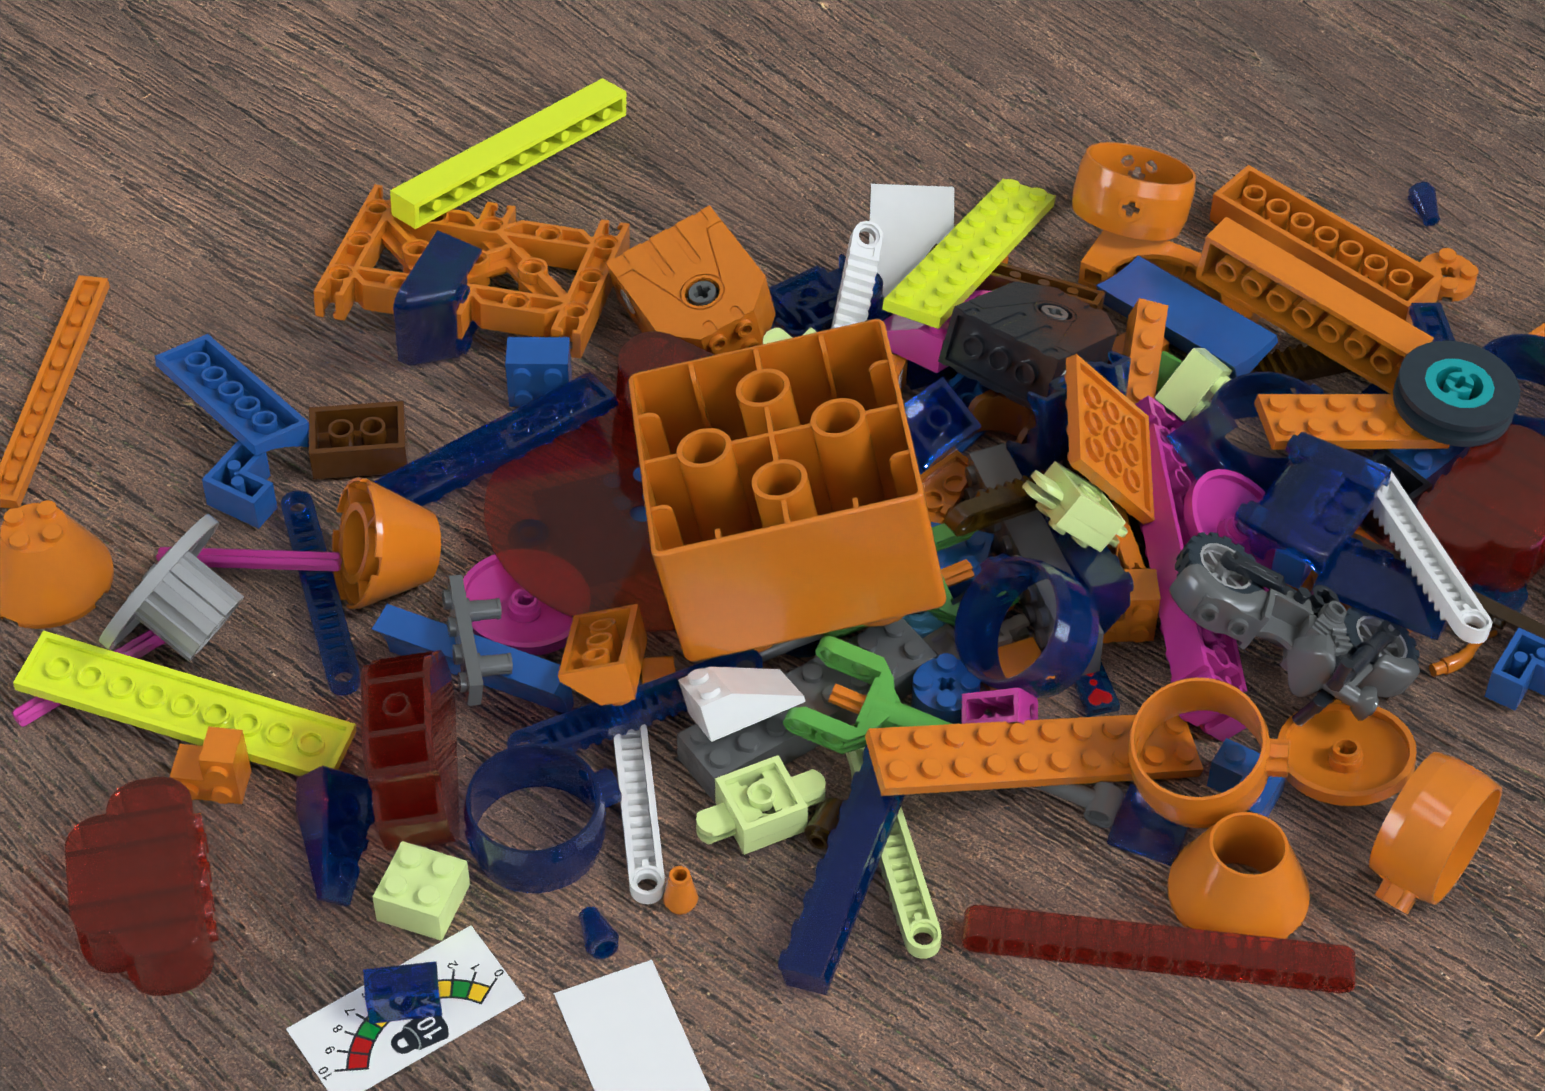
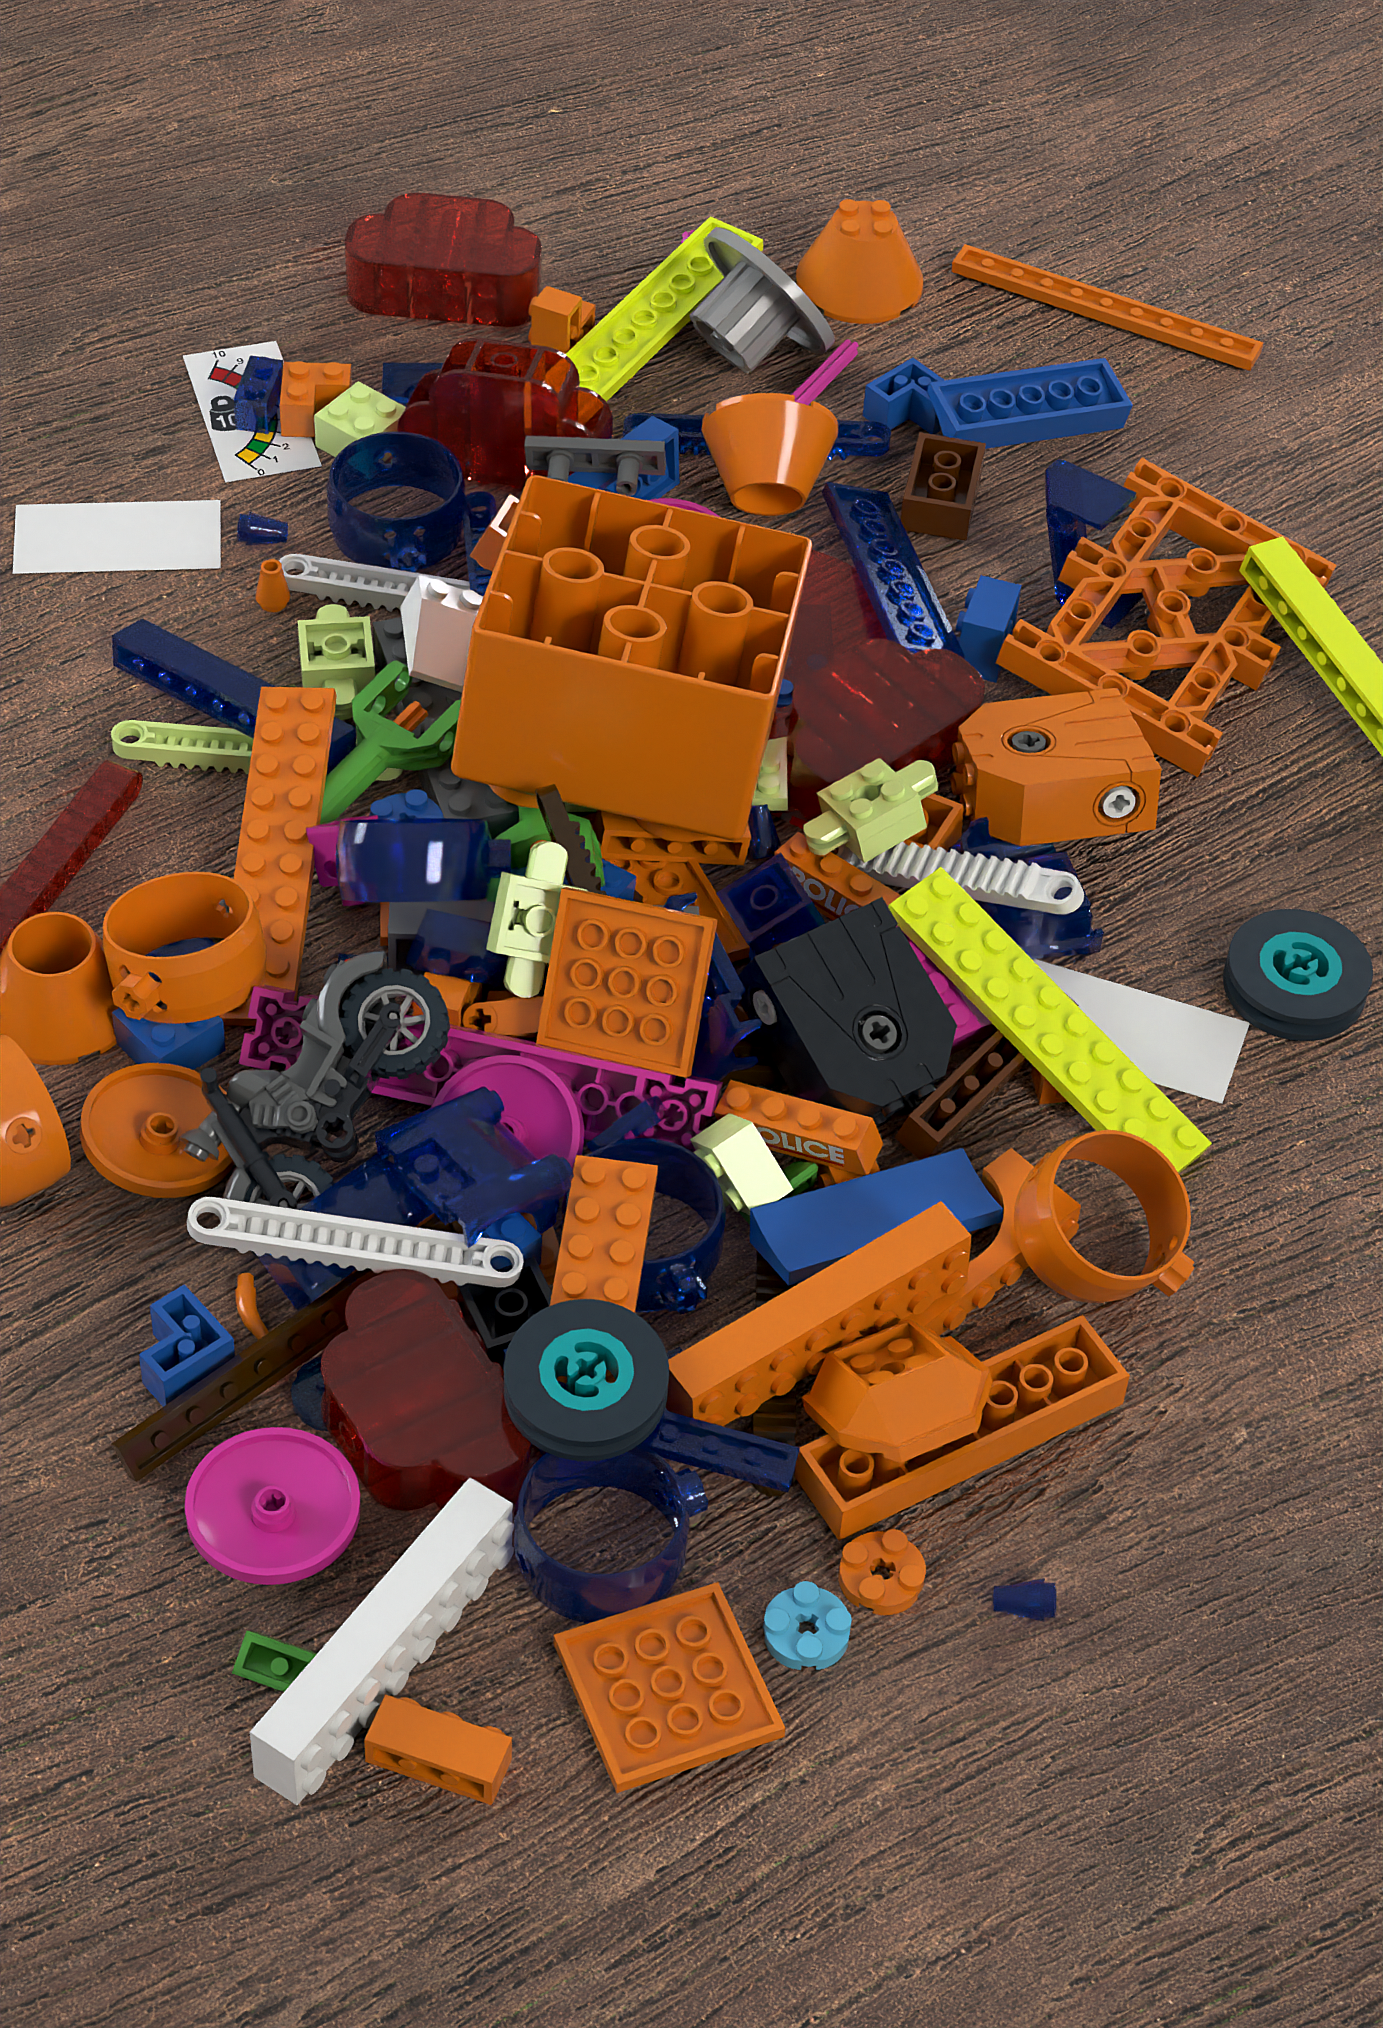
camera: 105 degrees right, 0 degrees up
(385, 948) = (306, 391): none -> orange brick
(823, 157) = (1297, 974): none -> black wheel
(1365, 251) = (899, 1392): none -> orange piece
(1503, 289) = (813, 1605): none -> medium azure plate

